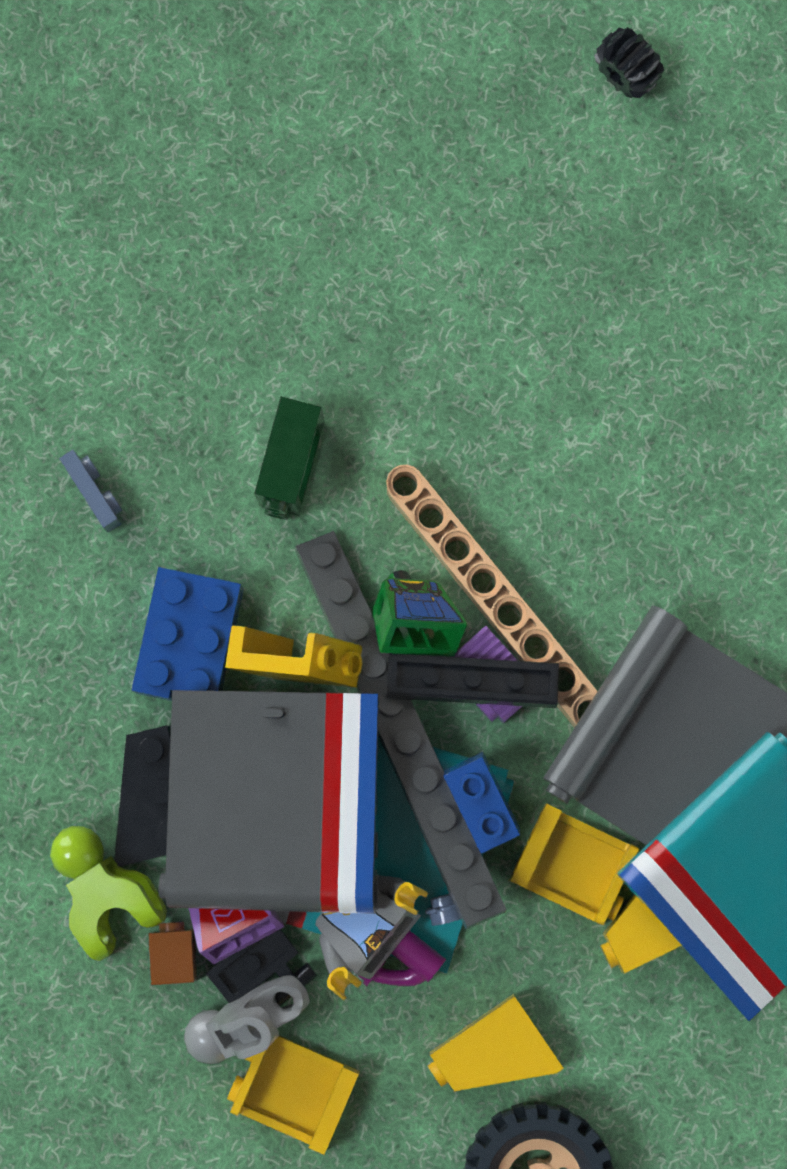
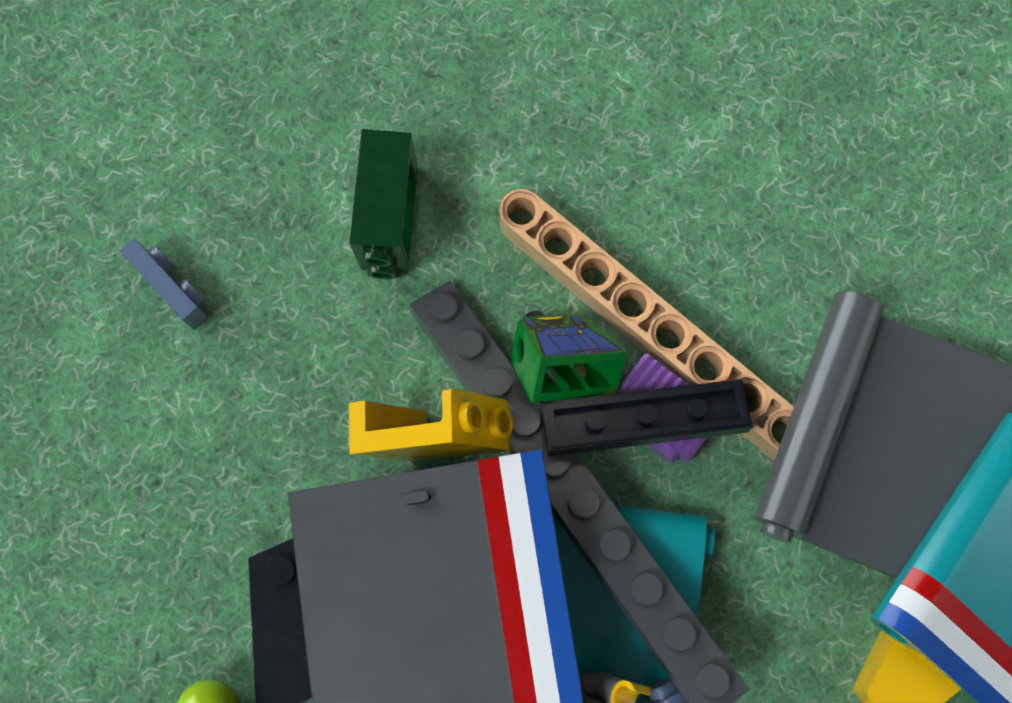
camera: 15 degrees left, 5 degrees down
(186, 634) = (298, 425): blue piece -> none
(481, 802) = (689, 561): blue brick -> none
(573, 865) = (806, 615): yellow panel -> none

